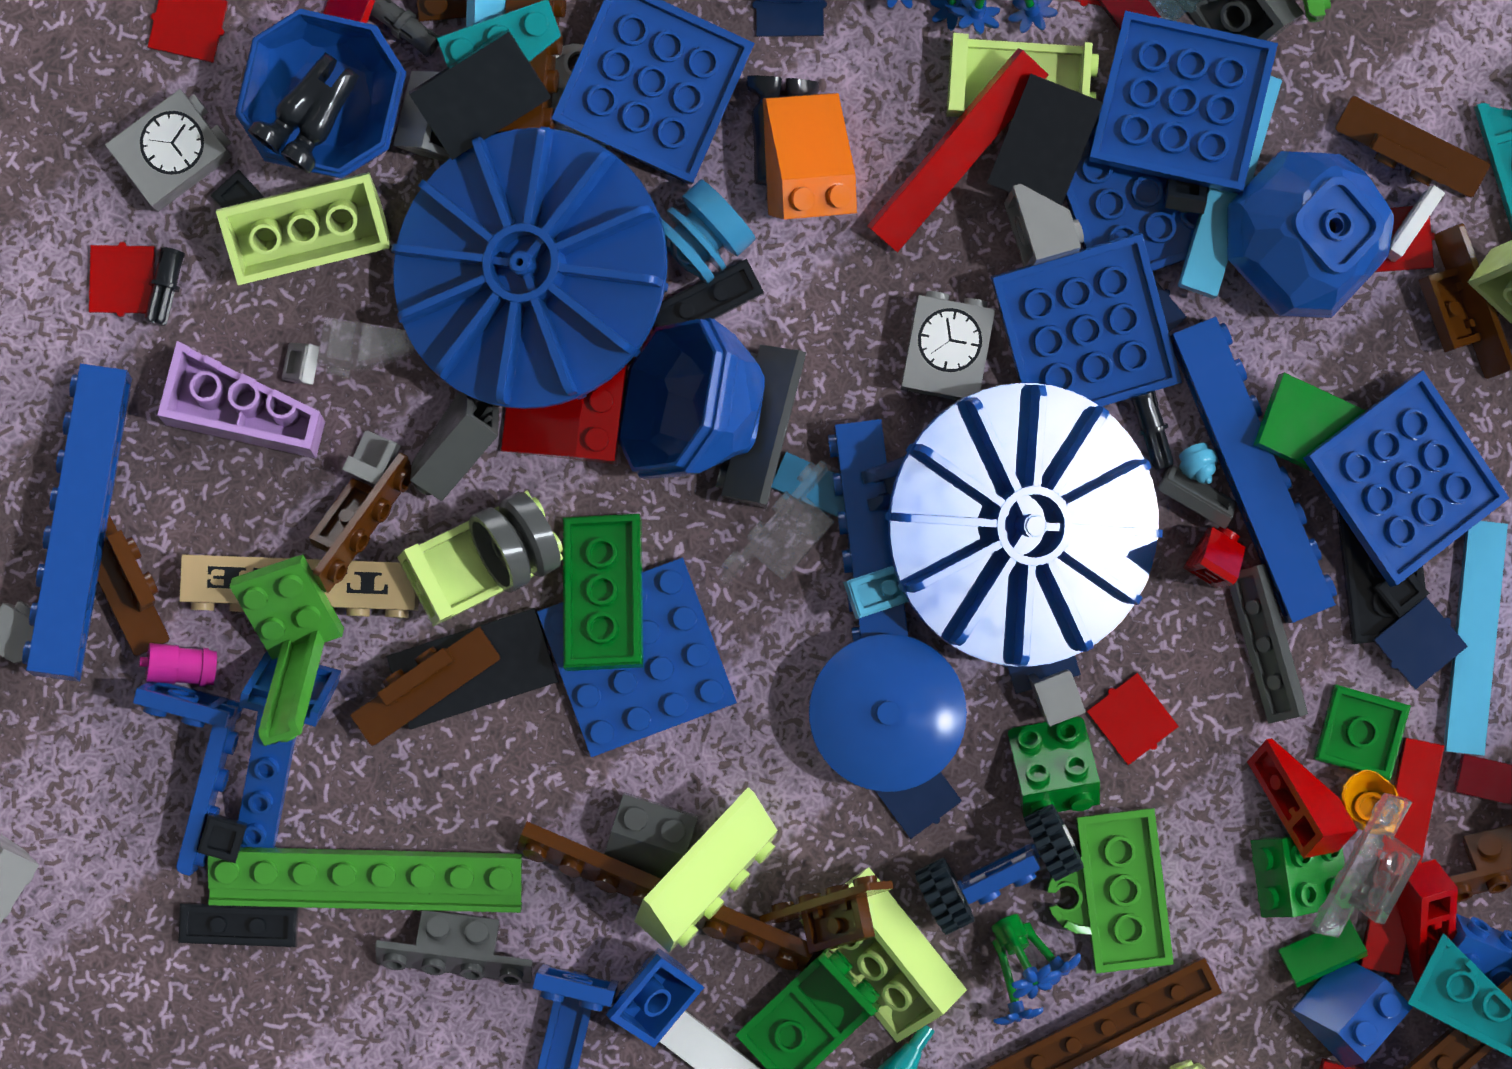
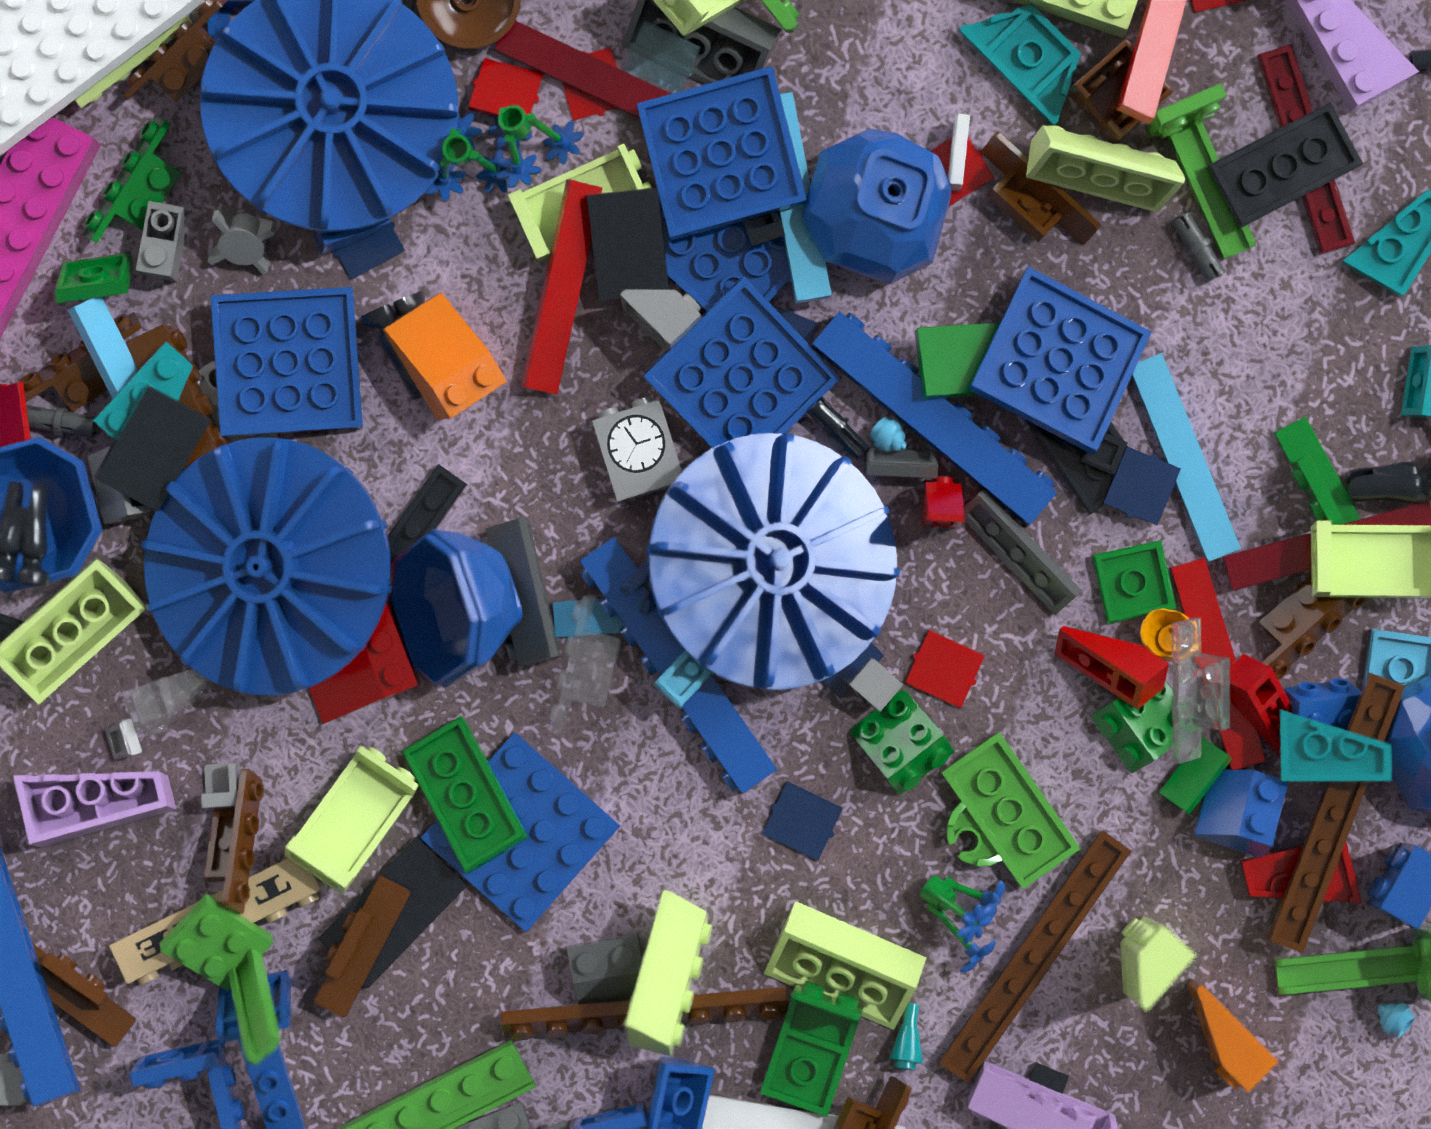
camera: 25 degrees left, 0 degrees up
(181, 665) = (154, 1035): dark pink piece -> none
(454, 445) = (282, 740): dark grey slope -> none
(514, 542) = (371, 792): dark grey wheel -> none
(704, 231) = (392, 461): dark azure wheel -> none
(835, 918) = (788, 957): reddish brown bracket -> none
(887, 712) = (744, 770): blue dish -> none
(951, 898) = (874, 891): black plate -> none
(1412, 147) = (925, 91): reddish brown bracket -> none

